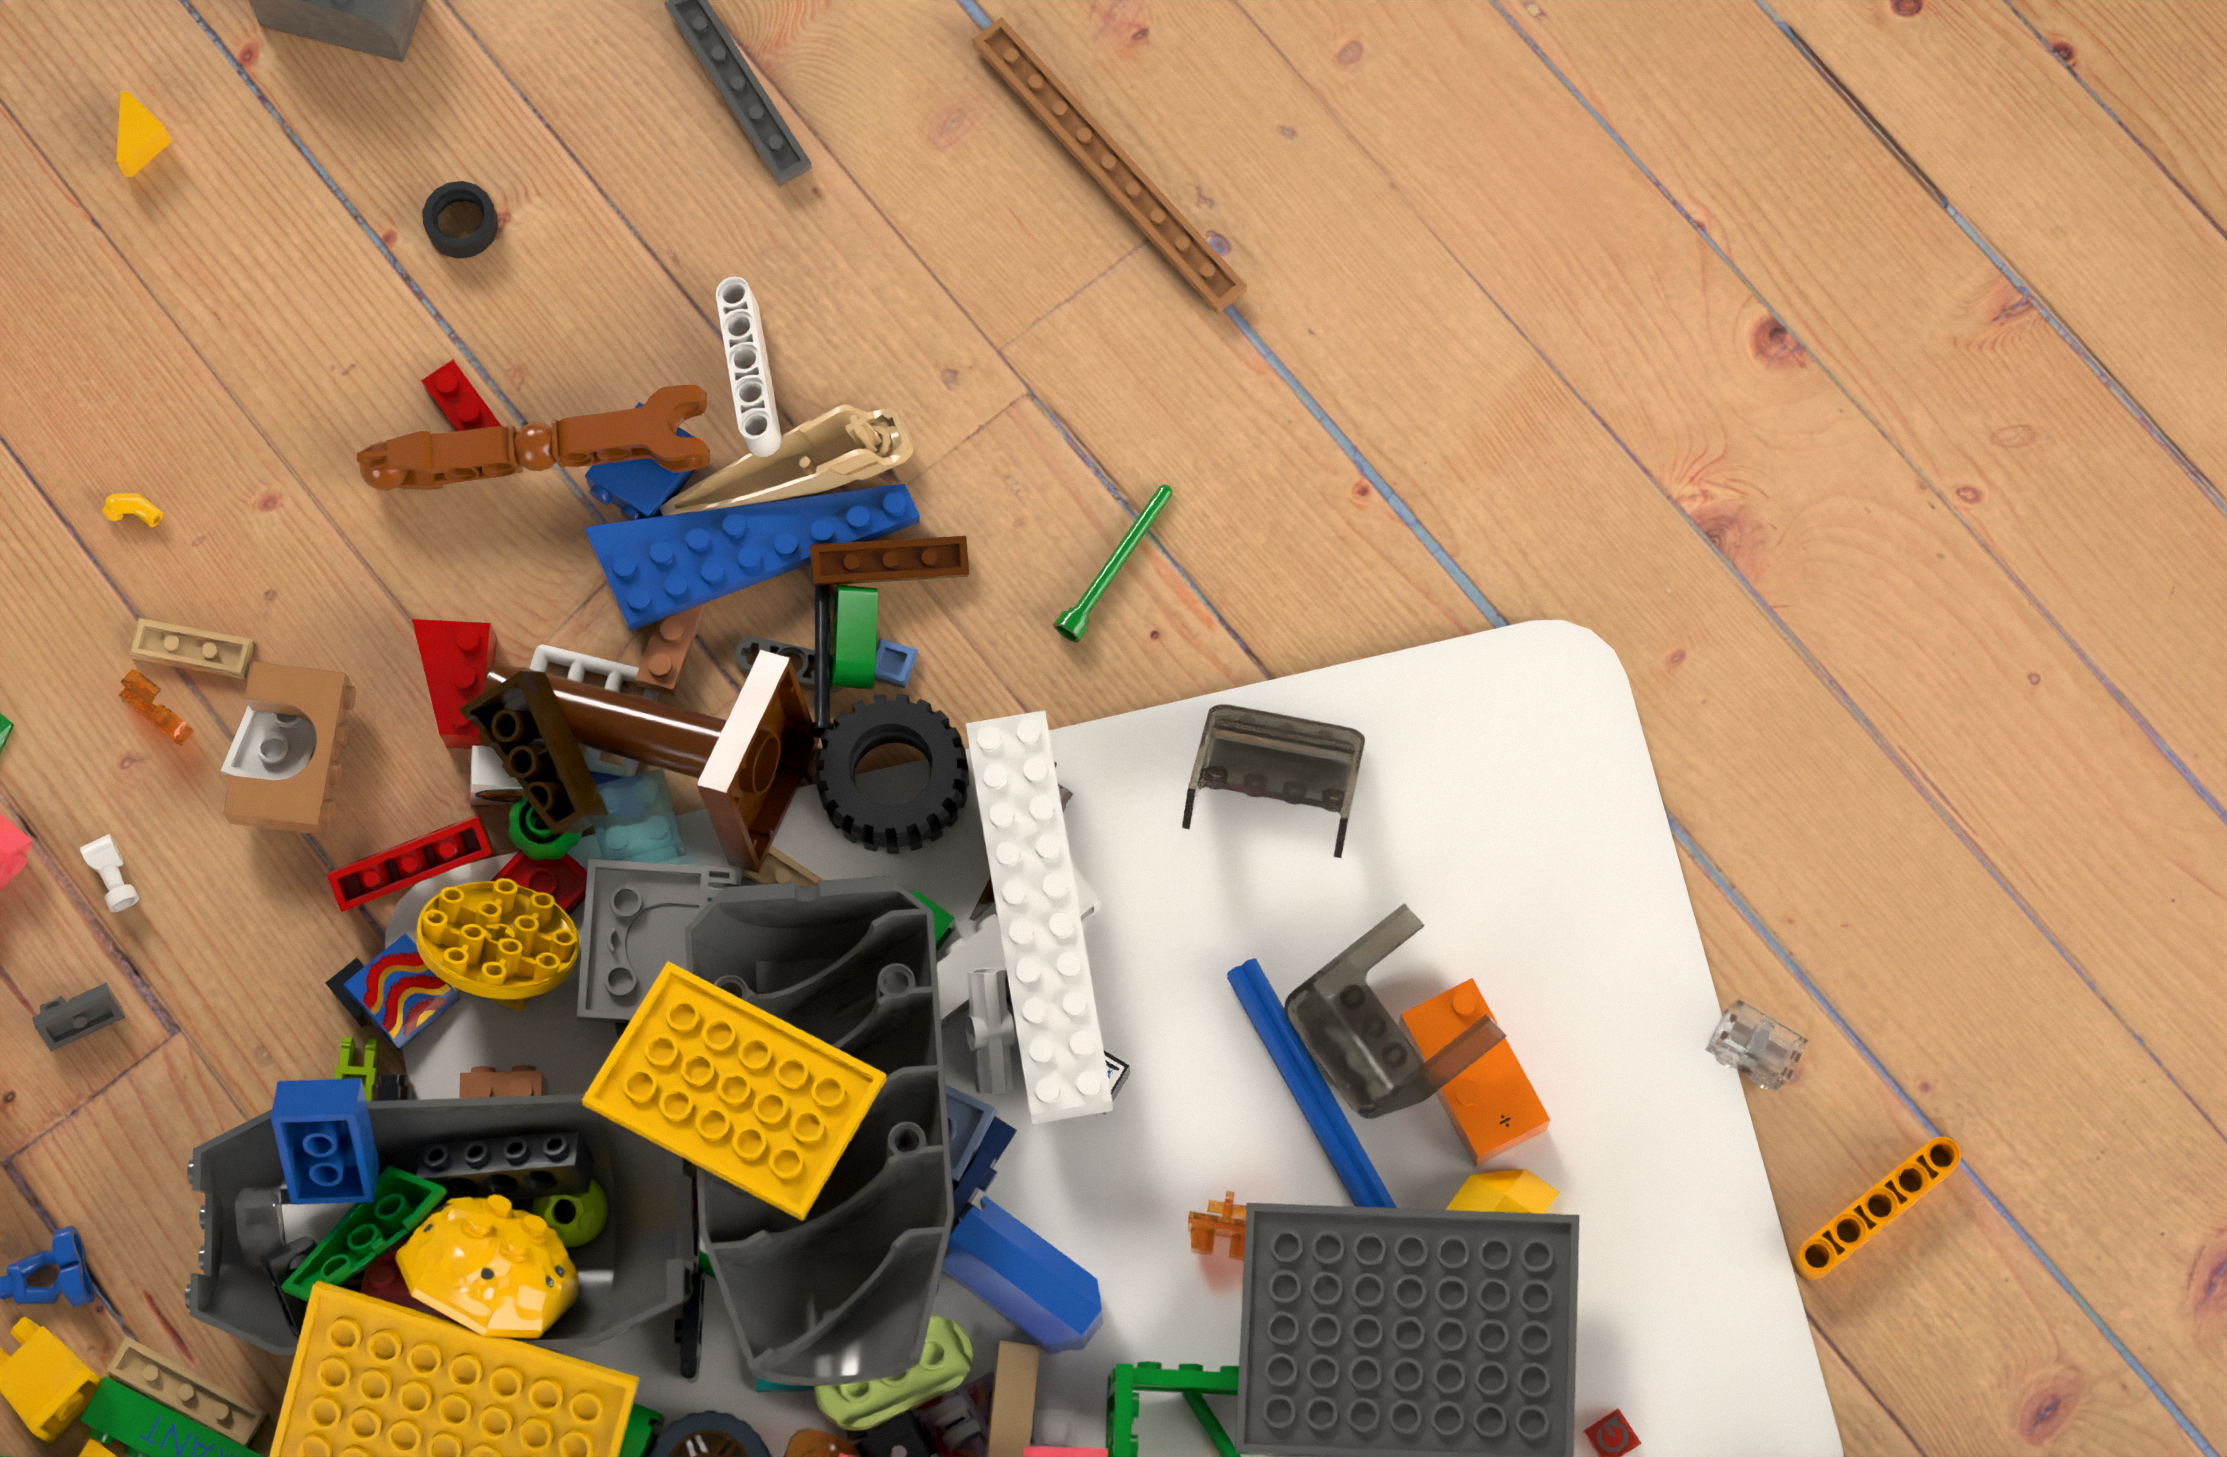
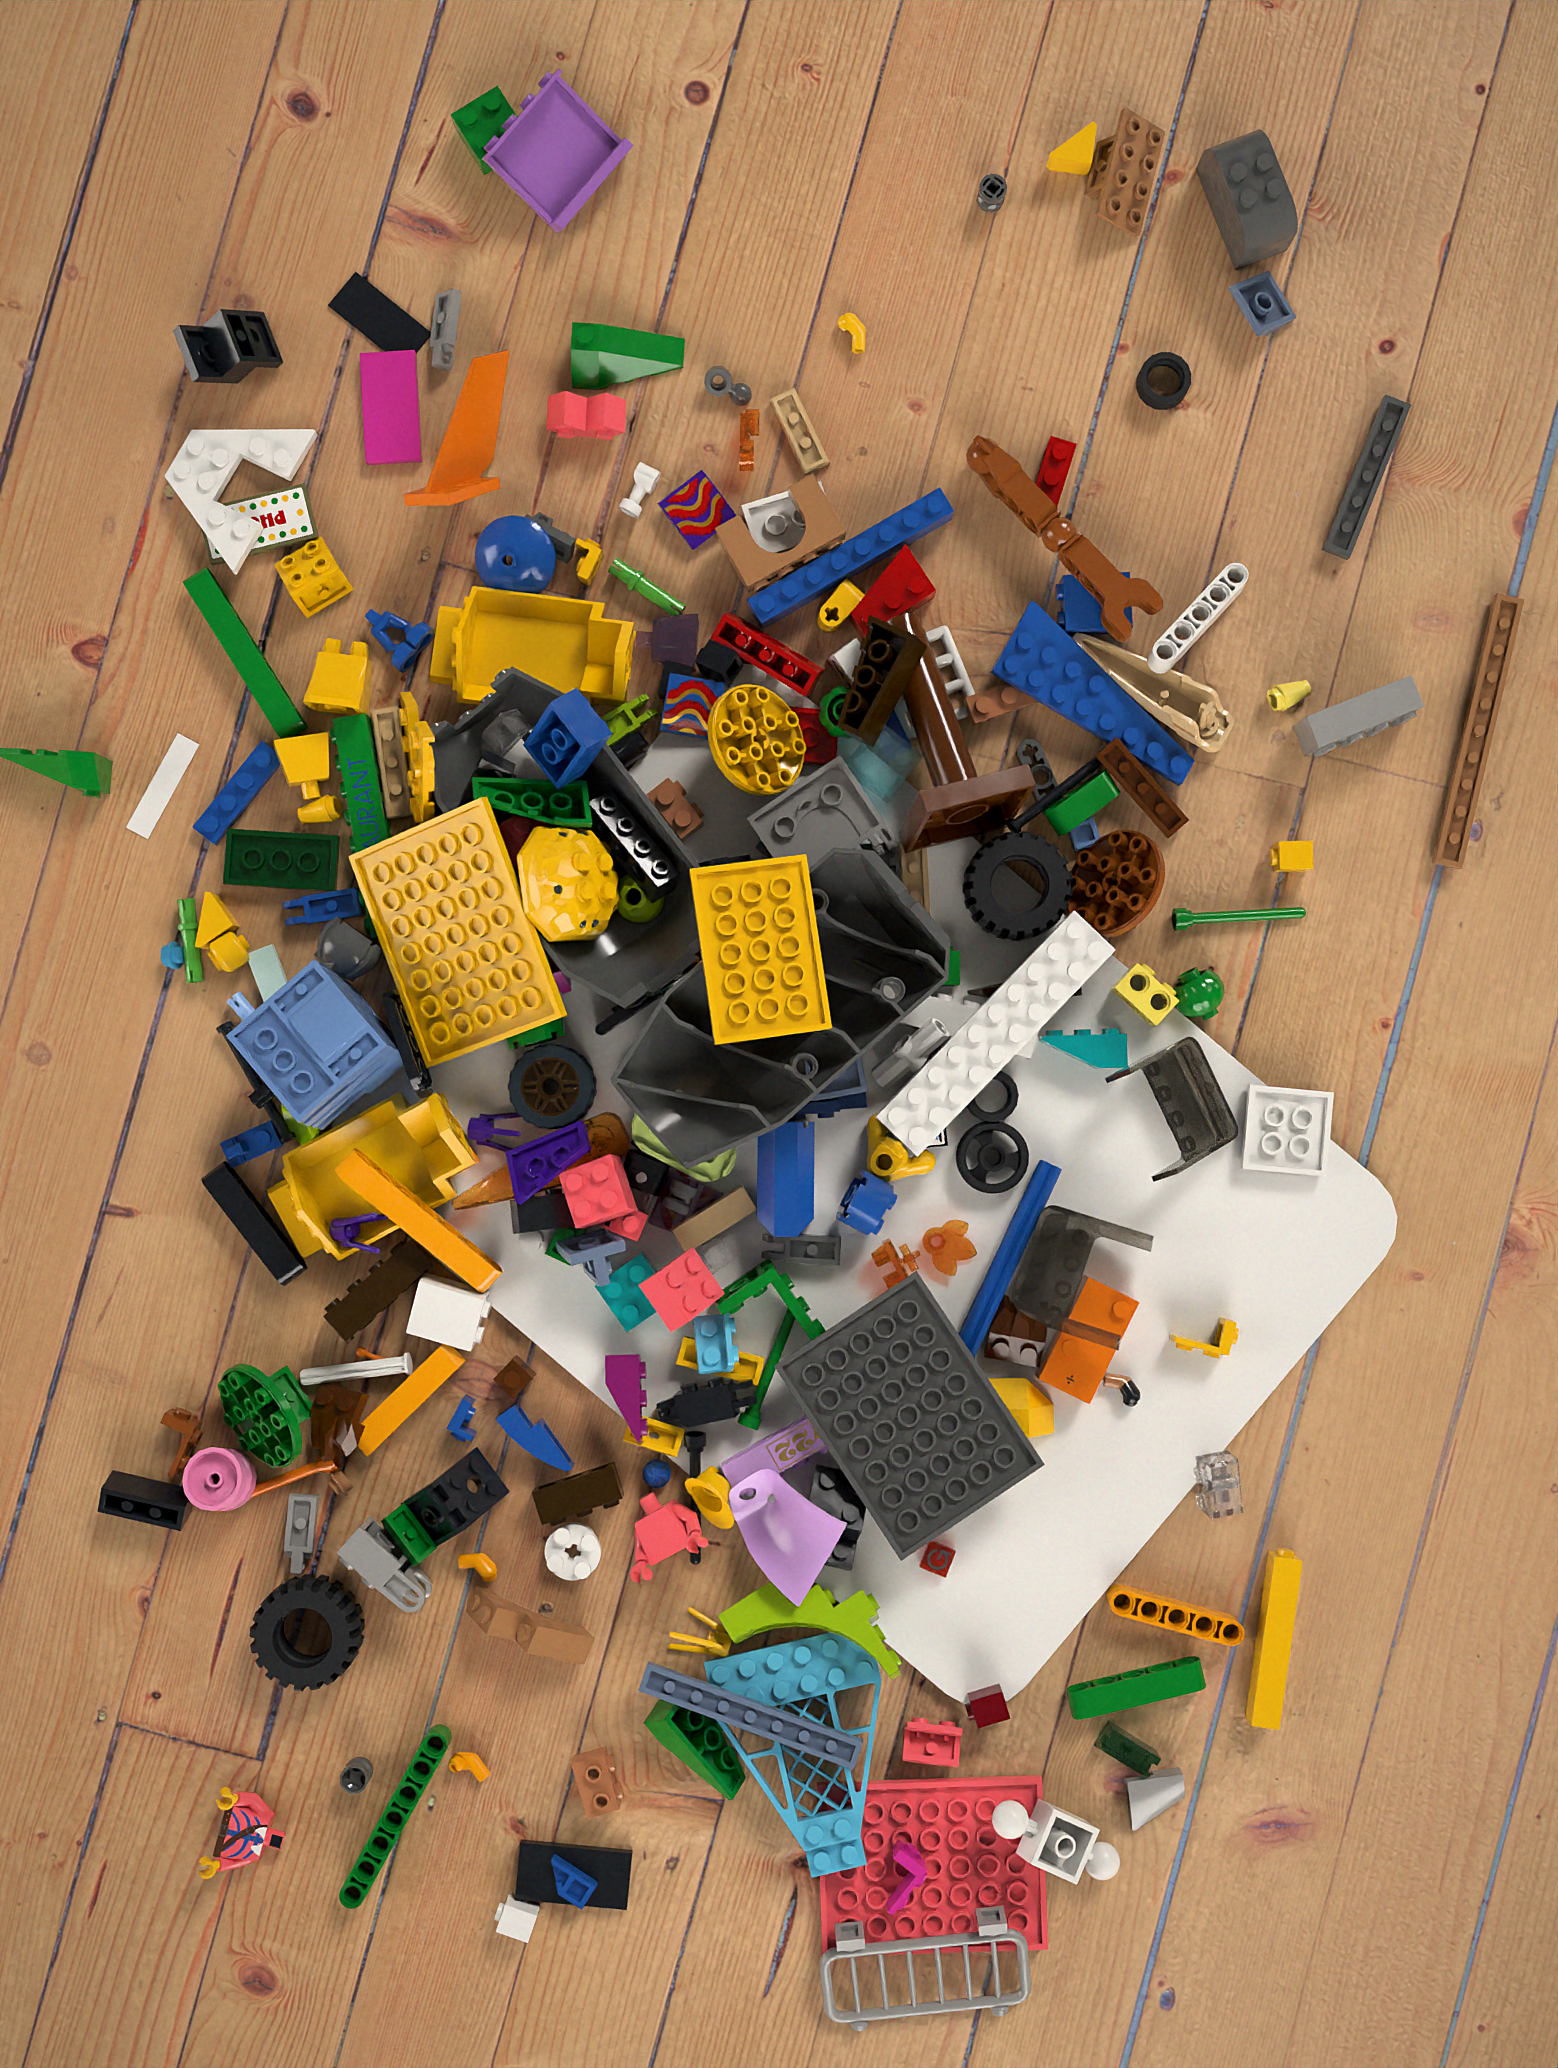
camera: 50 degrees right, 15 degrees up
(78, 1042) = (527, 545): none -> blue dish
(95, 683) = (739, 393): none -> dark grey plate
(108, 261) = (989, 199): none -> dark grey wheel
(139, 1141) = (542, 635): none -> yellow panel
(146, 994) = (588, 565): none -> yellow bracket
(184, 825) = (696, 509): none -> slope
(202, 98) = (1125, 171): none -> medium nougat bracket
(226, 946) = (637, 581): none -> bright green pin
(233, 1363) = (420, 758): none -> yellow wing
(307, 959) = (672, 639): none -> clear purple torso
(376, 923) = (719, 663): none -> black brick
(378, 696) = (850, 558): none -> blue brick
(422, 742) = (841, 604): none -> yellow piece
(462, 58) = (1262, 303): none -> sand blue slope
(909, 334) = (1287, 694): none -> light yellow cone
(972, 657) = (1117, 882): none -> dark orange bracket
(992, 276) = (1363, 714): none -> light grey brick
(1091, 1143) = (889, 1158): none -> yellow head
(1093, 455) = (1291, 856): none -> yellow brick
(1126, 1208) = (866, 1203): none -> blue brick
(1127, 733) = (1141, 1000): none -> light yellow brick
(1128, 1322) = (805, 1249): none -> dark grey hinge
(1135, 959) = (1010, 1105): none -> black tyre
(1144, 825) = (1096, 1050): none -> teal slope
(1147, 1018) = (977, 1177): none -> black wheel
(1170, 665) = (1199, 993): none -> green plant
(1255, 1151) = (952, 1247): none -> clear orange plate
(1399, 678) = (1287, 1130): none -> white plate
(1411, 1150) = (1015, 1336): none -> reddish brown plate
(1563, 1069) = (1127, 1387): none -> arm
(1587, 914) = (1225, 1336): none -> yellow bracket
(1934, 1317) = (1136, 1687): none -> green beam
(1986, 1114) = (1273, 1639): none -> yellow brick
(2003, 1381) = (1127, 1749): none -> clear green hinge
(2080, 1391) = (1153, 1795): none -> light grey slope

